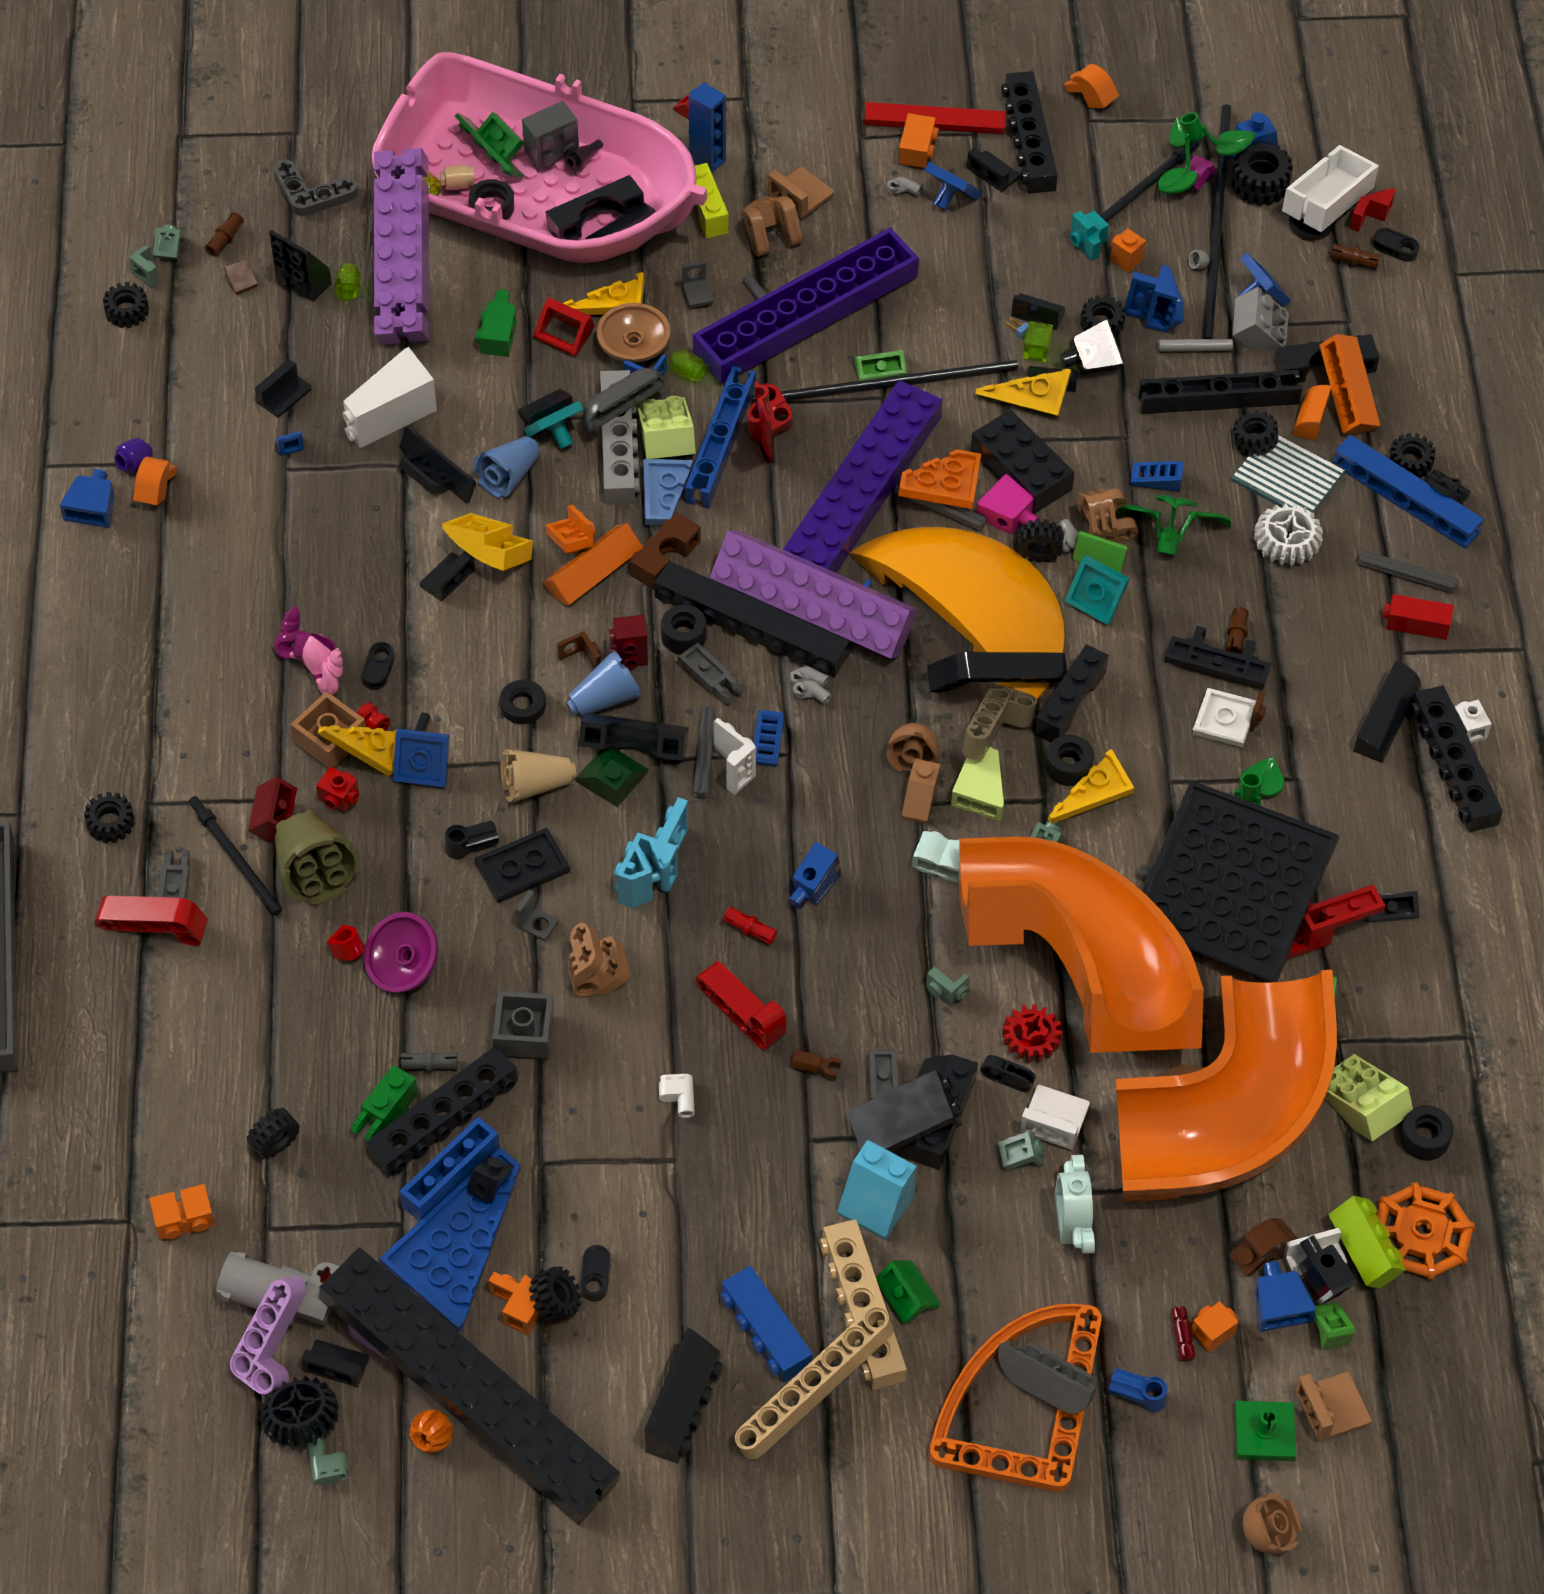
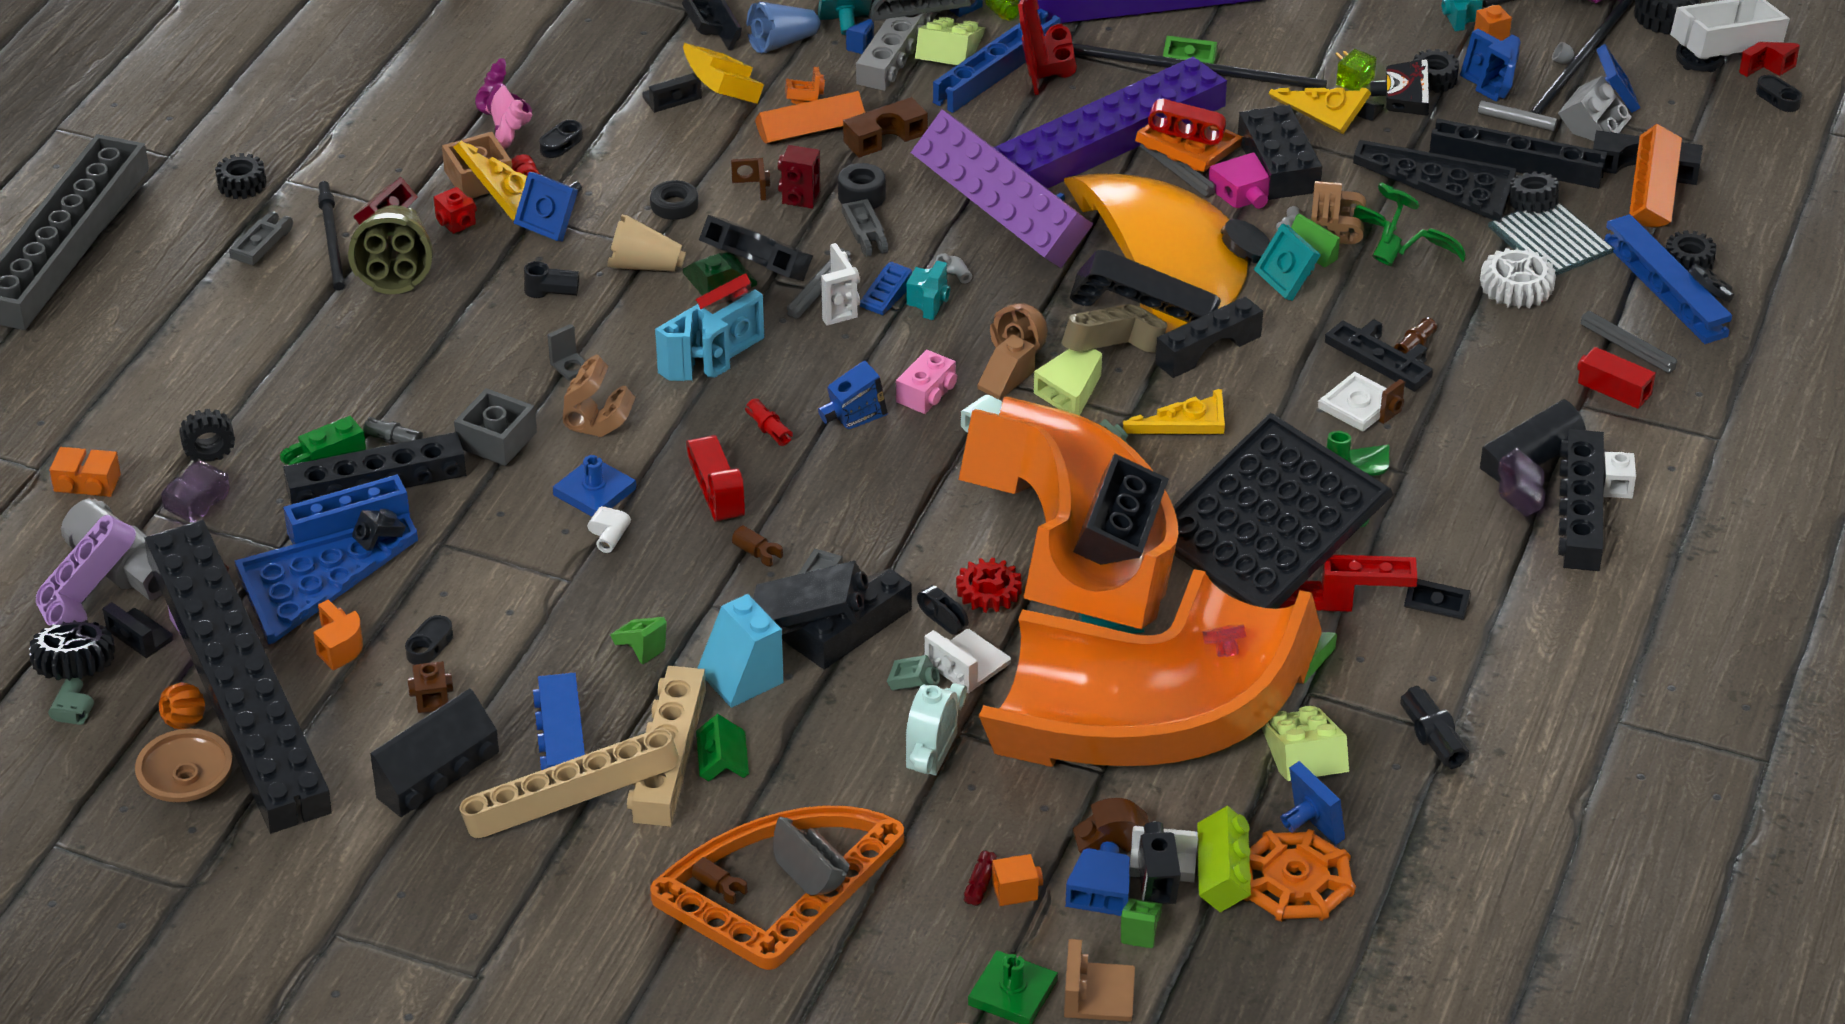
camera: 25 degrees right, 15 degrees down
(153, 915) = (224, 248): red beam -> none
(296, 1195) = (195, 491): none -> clear purple brick
(346, 944) = (379, 323): red plate -> none
(389, 949) = (422, 340): magenta dish -> none
(472, 1478) = (183, 765): none -> medium nougat dish
(522, 865) = (590, 315): black tile -> none
(555, 1294) = (363, 644): black tyre -> none
(583, 451) = (859, 36): none -> blue slope
(604, 687) = (754, 204): medium blue cone -> none
(632, 1325) = (430, 686): none -> reddish brown brick
(639, 1053) = (594, 486): none -> blue tile
(653, 805) = (730, 291): none -> red wing
(663, 487) = (914, 81): medium blue wing -> none
(753, 619) = (935, 199): black brick -> none
(775, 1199) = (644, 636): none -> bright green slope
(806, 674) = (959, 251): light grey arm -> none
(807, 727) = (928, 289): none -> teal brick
(860, 832) = (926, 381): none -> bright pink brick
(936, 462) = (1176, 127): none -> red beam
(944, 988) = (928, 527): sand green bracket -> none
(979, 1422) = (718, 880): none -> reddish brown bar
(1037, 310) = (1372, 45): black panel -> none
(1040, 540) = (1262, 202): black tyre -> none
(1047, 574) = (1244, 239): none -> black tile
(1069, 746) = (1172, 383): black tyre -> none
(1127, 936) = (1121, 512): none -> black slope
(1135, 1388) = (904, 907): blue piece -> none
(1165, 482) = (1429, 202): blue slope -> none
(1195, 439) = (1463, 182): none -> black wing
(1265, 1025) = (1225, 639): none -> clear pink tile
(1312, 412) = (1606, 194): orange brick -> none
(1355, 256) = (1728, 90): reddish brown pin -> none
(1402, 761) = (1521, 482): none -> clear purple brick
(1411, 1162) = (1315, 804): none -> blue tile
(1431, 1118) = (1356, 778): black tyre -> none
(1456, 1041) = (1434, 727): none -> black piece

